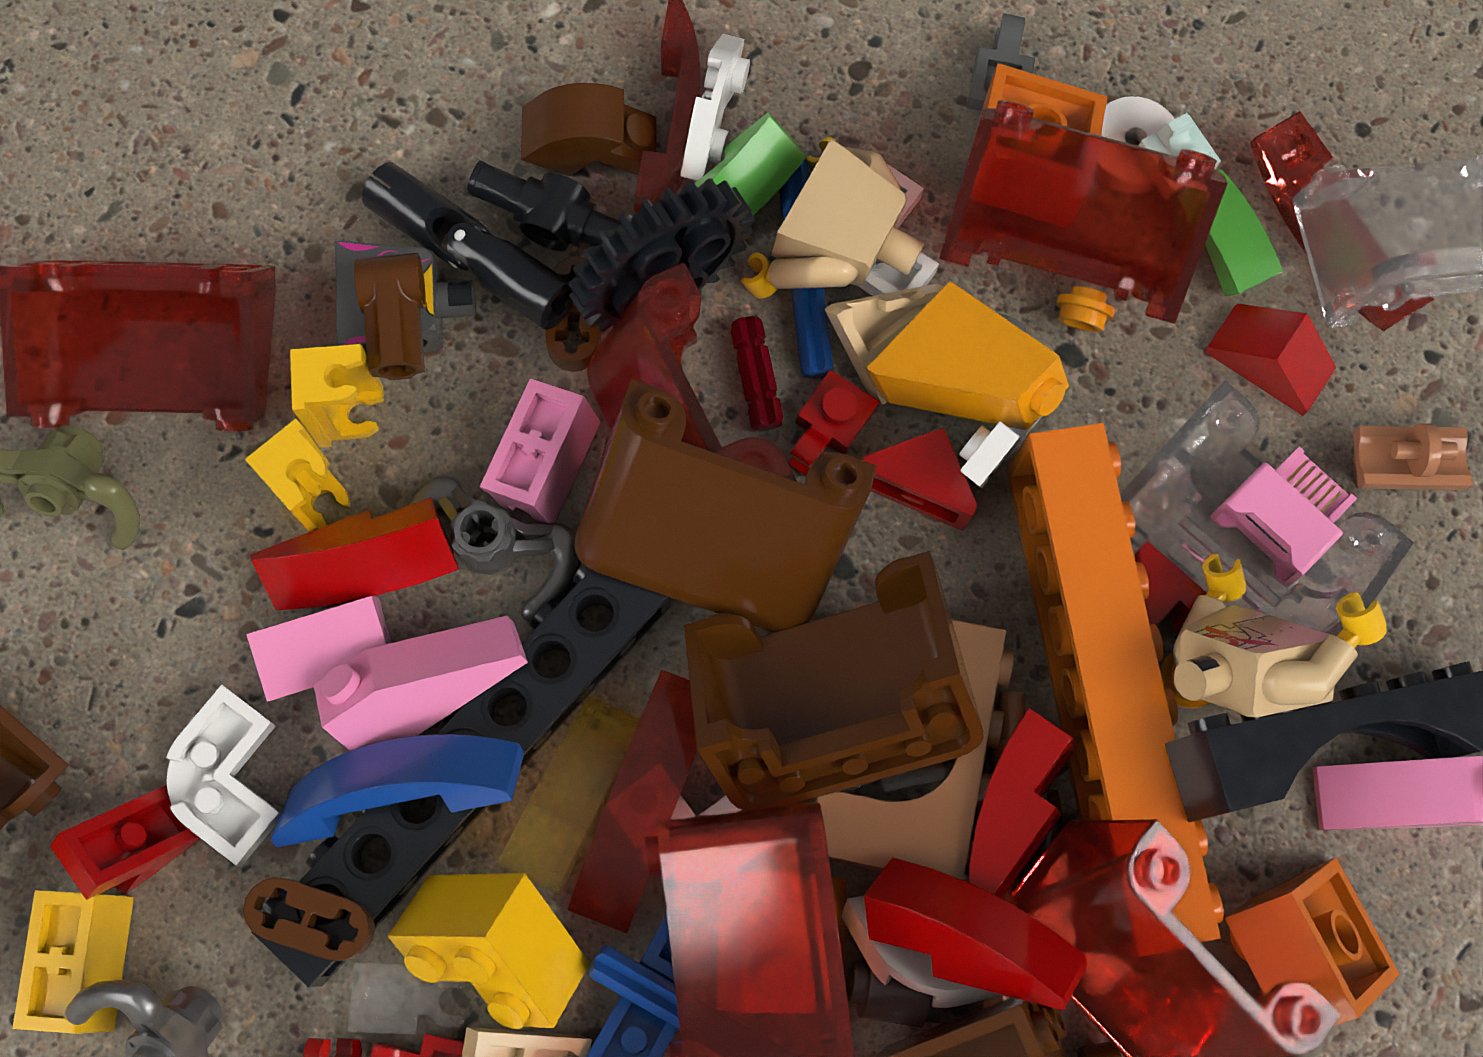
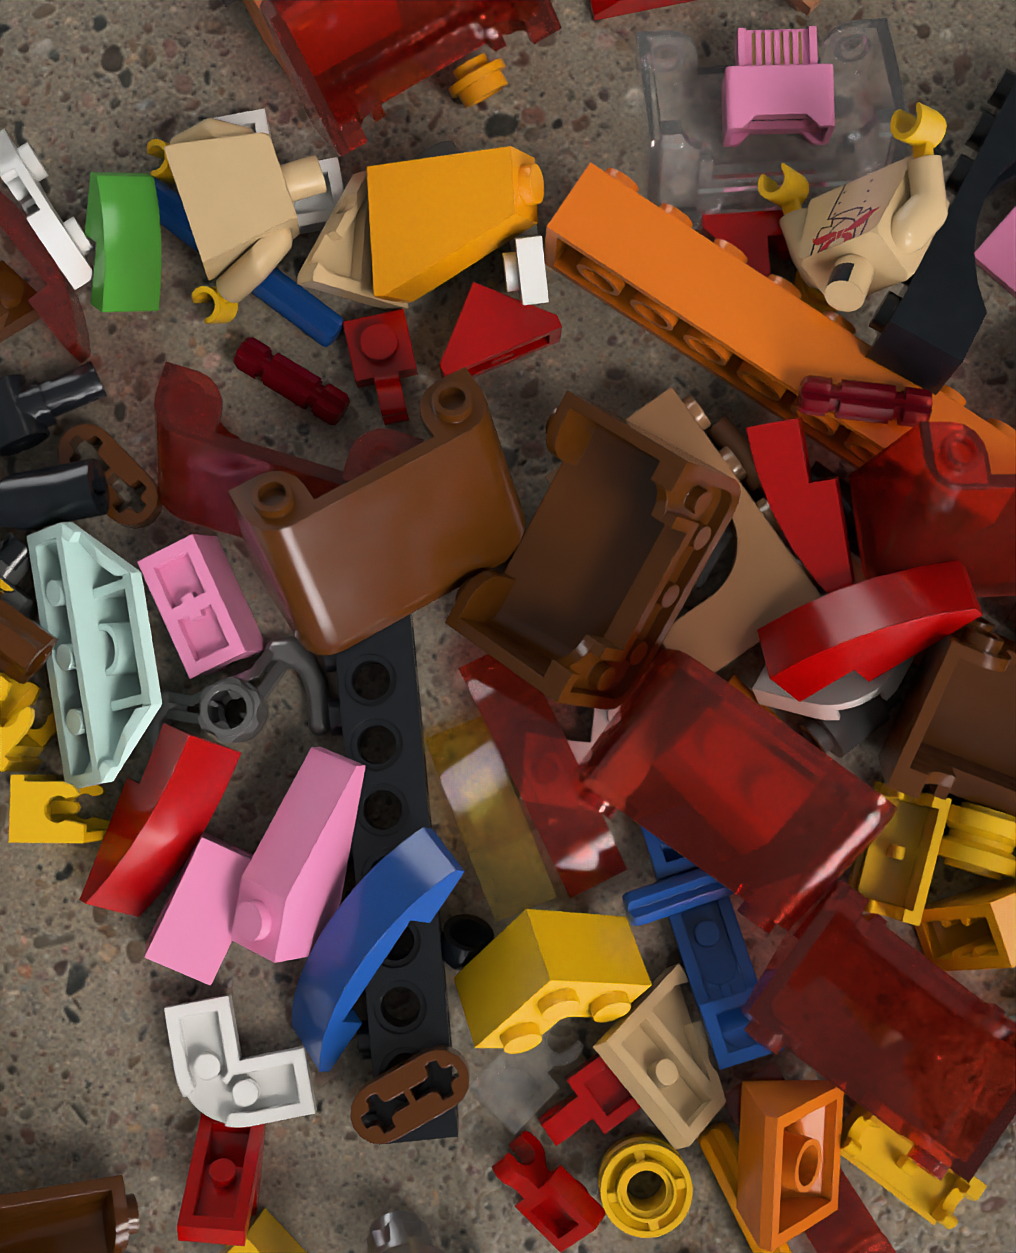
camera: 45 degrees left, 10 degrees up
(441, 412) = (104, 653): none -> light aqua wedge
(465, 855) = (464, 939): none -> black hinge
(690, 228) = (127, 364): black gear -> none
(1131, 770) = (864, 401): none -> dark red axle

